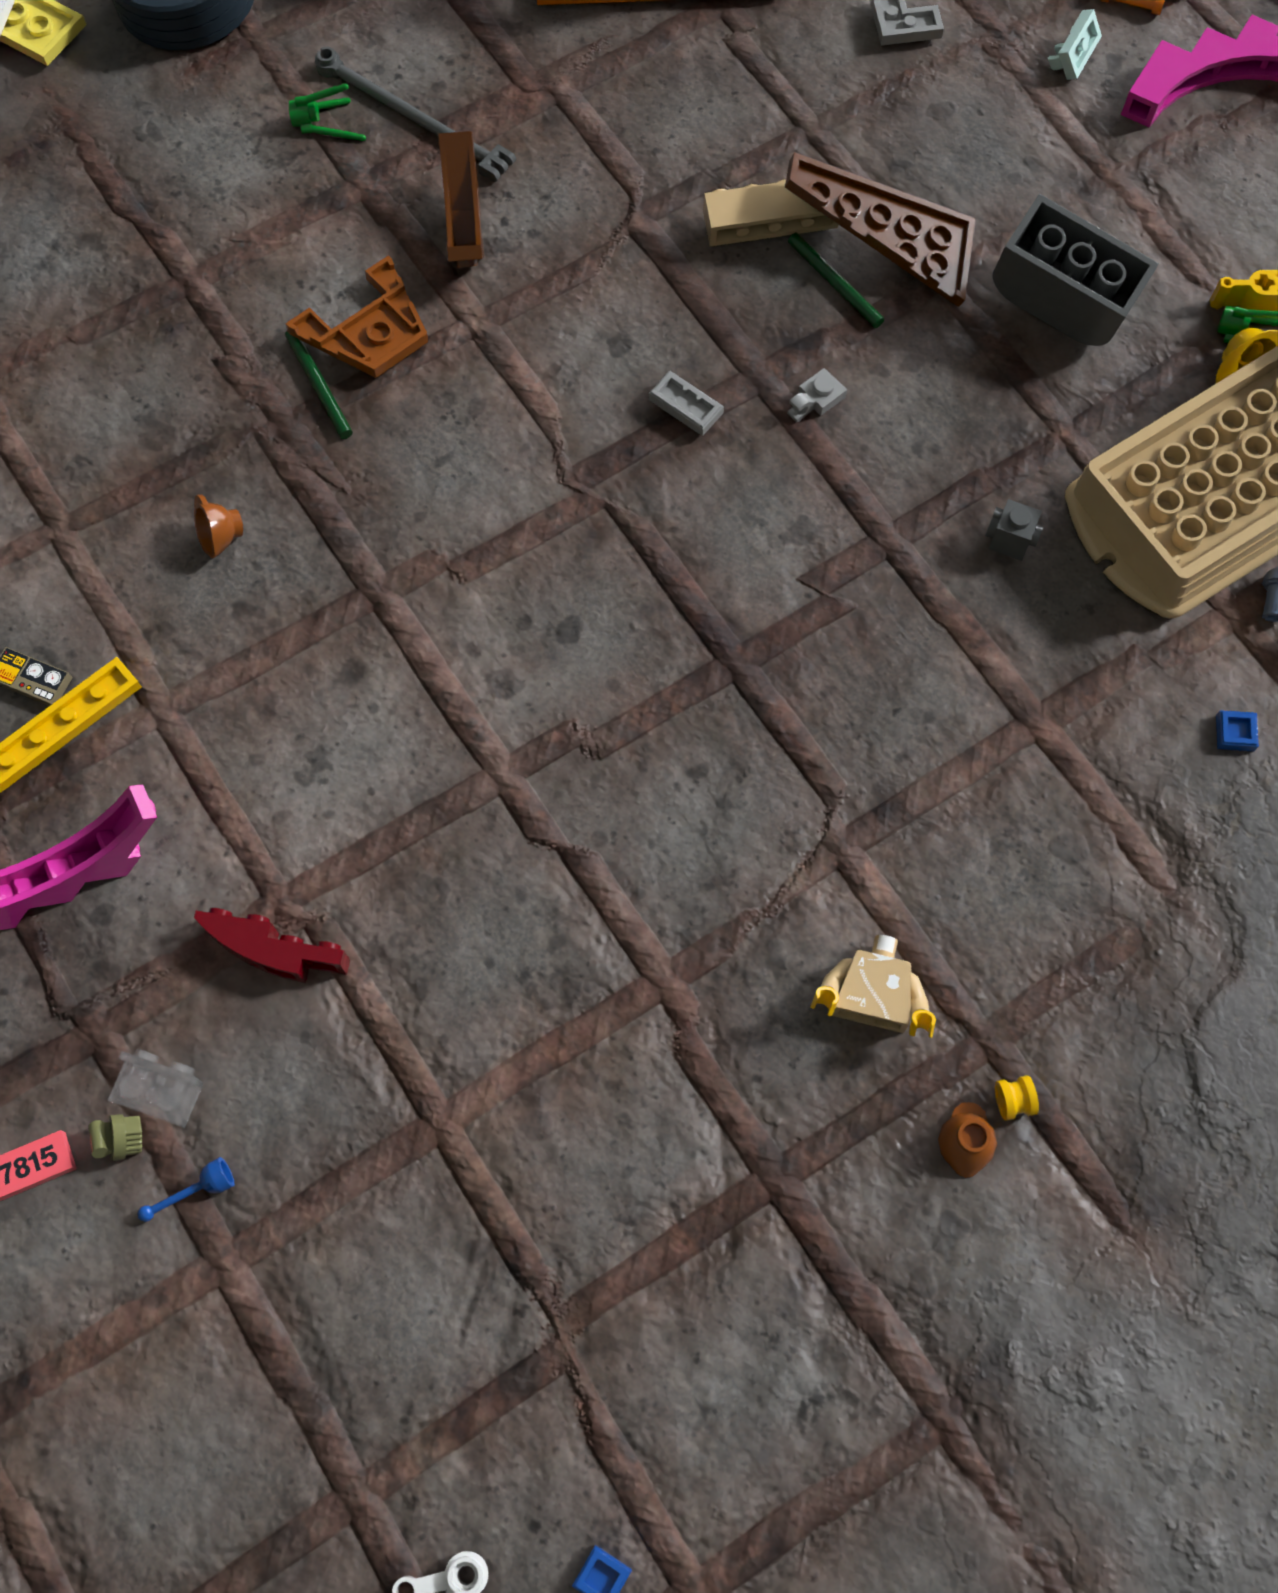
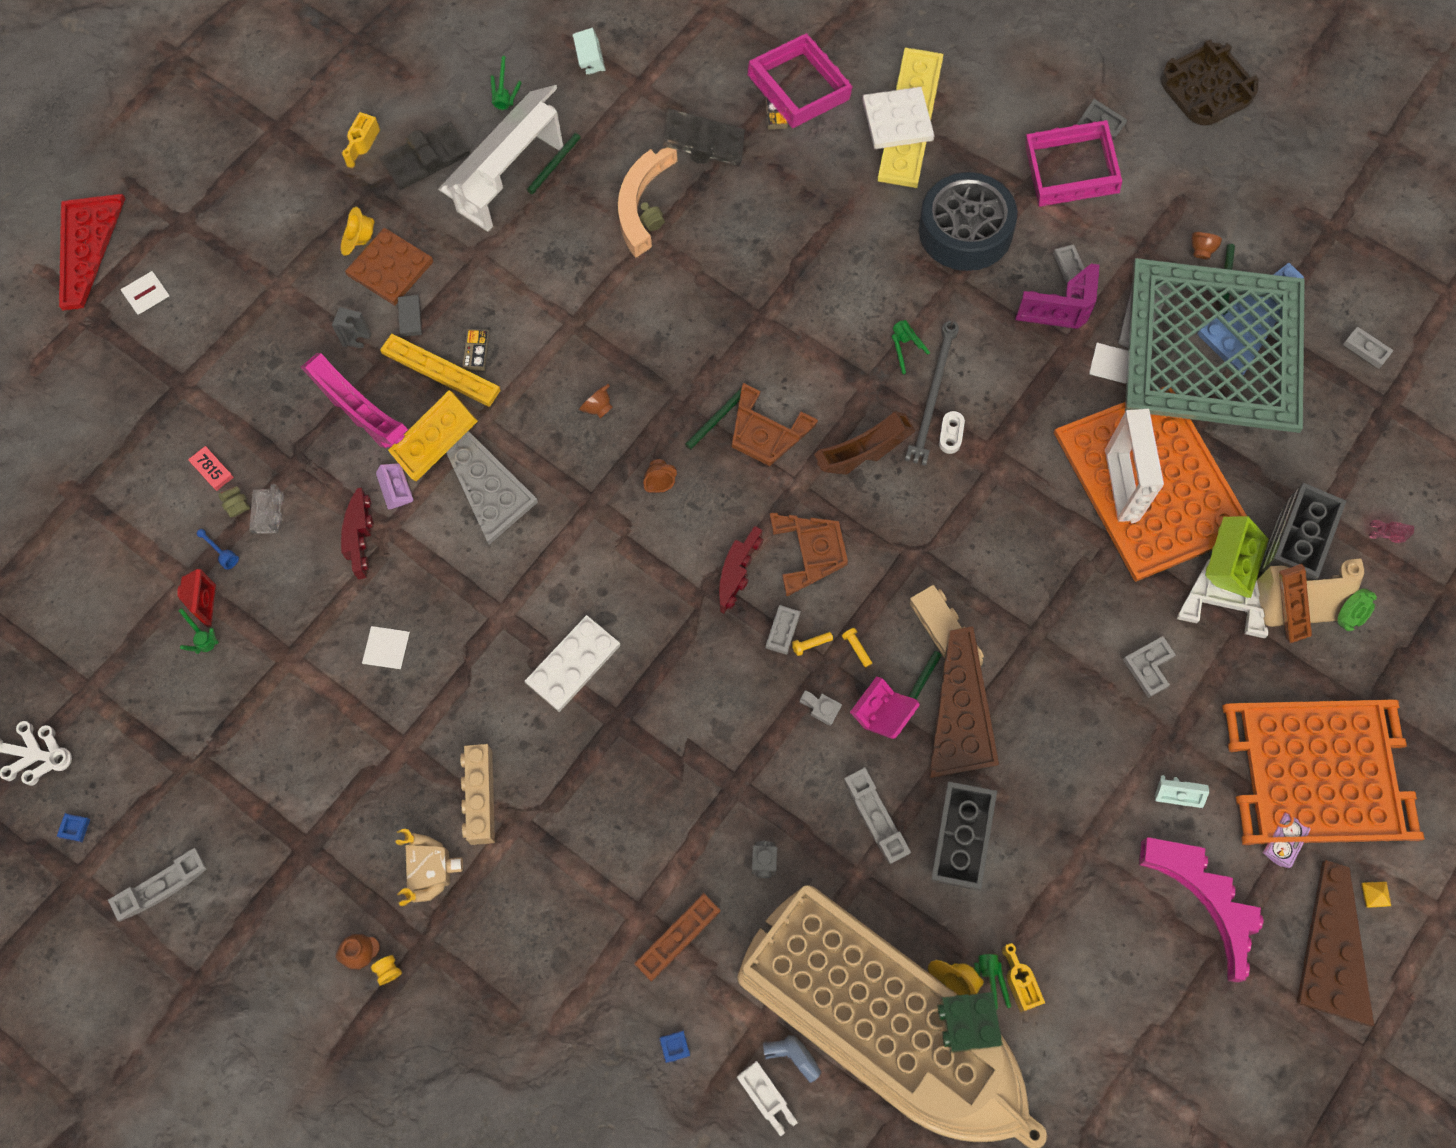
camera: 70 degrees right, 0 degrees up
(151, 750) = (433, 435): none -> yellow plate
(208, 871) = (394, 485): none -> lavender slope
(265, 1243) = (198, 595): none -> red slope
(282, 724) = (490, 488): none -> light grey wing
(349, 1255) = (202, 640): none -> green plant
(379, 479) = (659, 476): none -> dark orange piece
(484, 962) = (385, 647): none -> white sticker
(487, 112) = (950, 433): none -> white plate
(574, 435) = (733, 572): none -> dark red slope
(579, 318) = (819, 545): none -> dark orange wing
(624, 694) = (572, 663): none -> white plate
(719, 391) = (799, 647): none -> yellow piece
(729, 326) = (858, 648): none -> yellow piece
(761, 1440) = (158, 887): none -> light grey slope
(786, 880) = (478, 794): none -> tan brick
(858, 313) = (883, 709): none -> dark pink bracket
(998, 383) = (876, 816): none -> light grey slope
(1087, 677) = (677, 937): none -> dark orange plate

